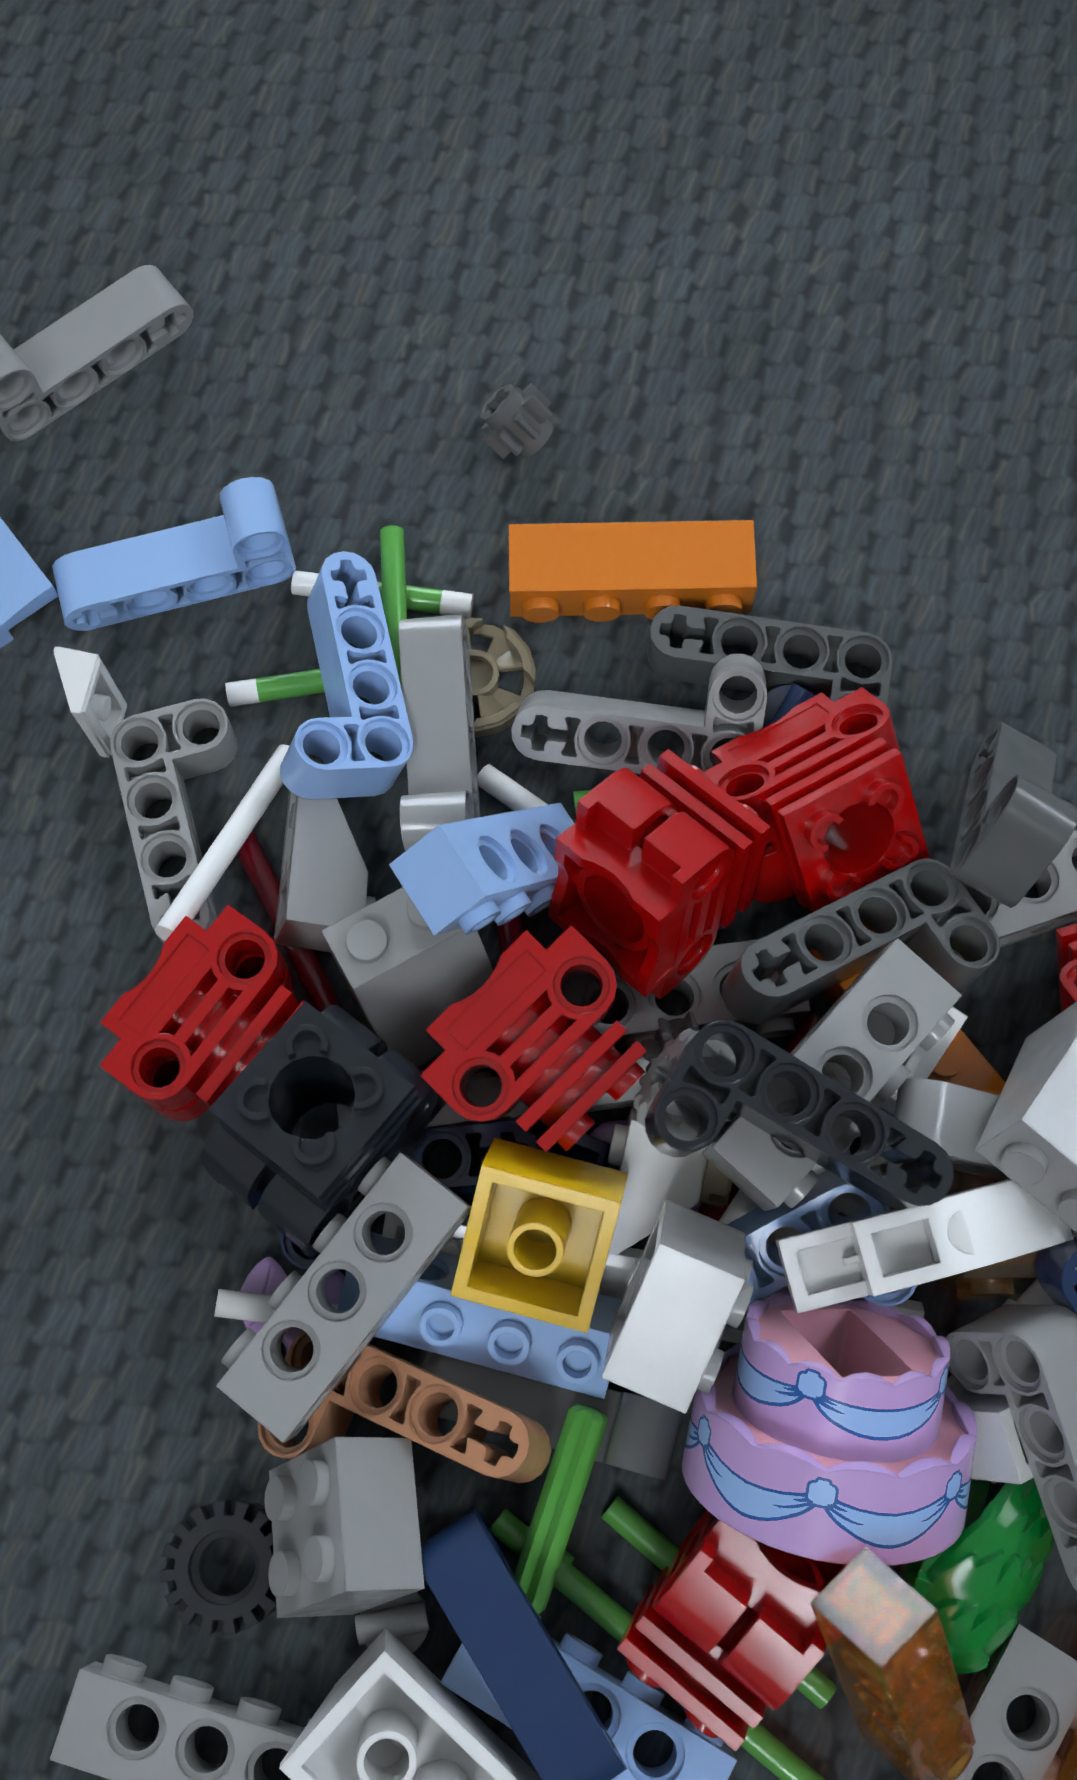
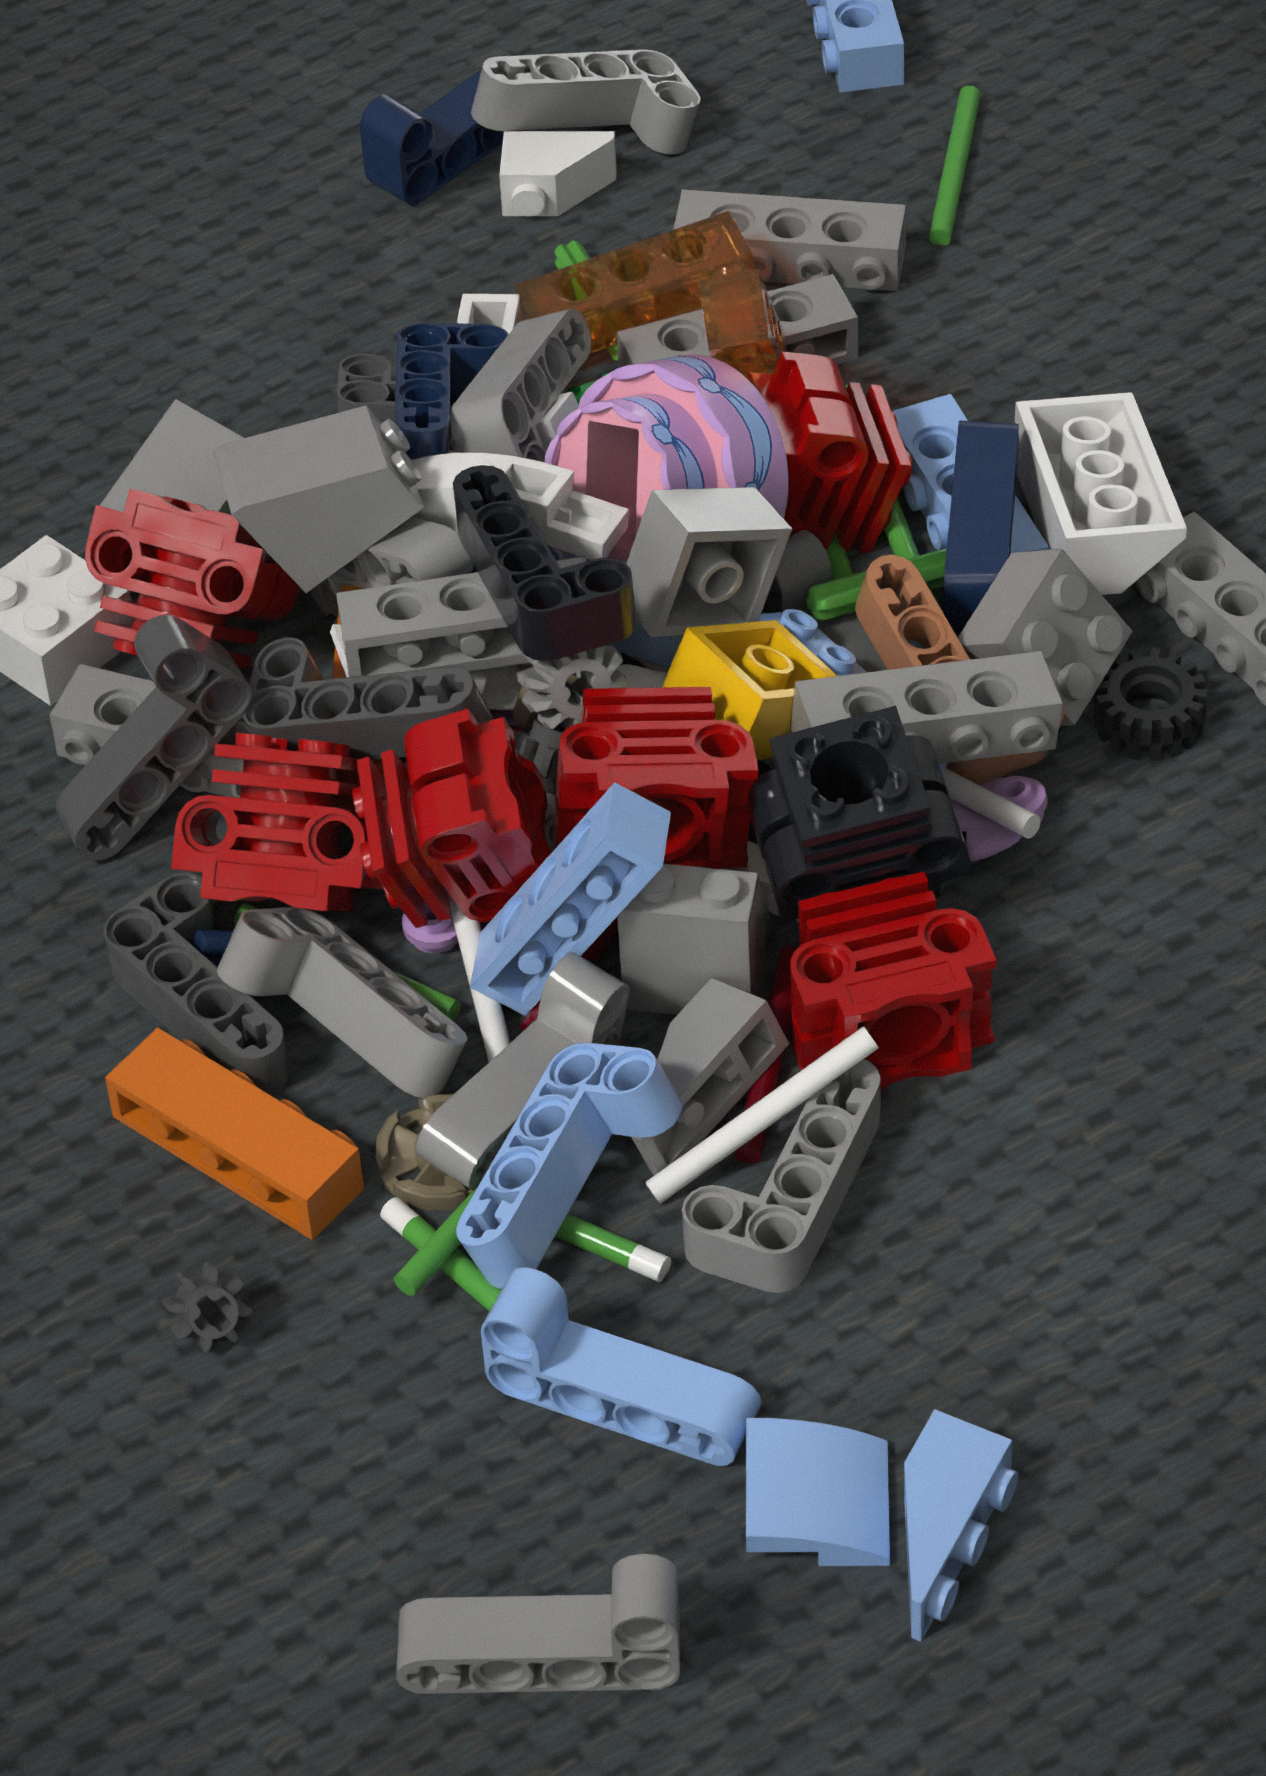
camera: 140 degrees left, 25 degrees down
(91, 695) = (788, 1284): white slope -> none

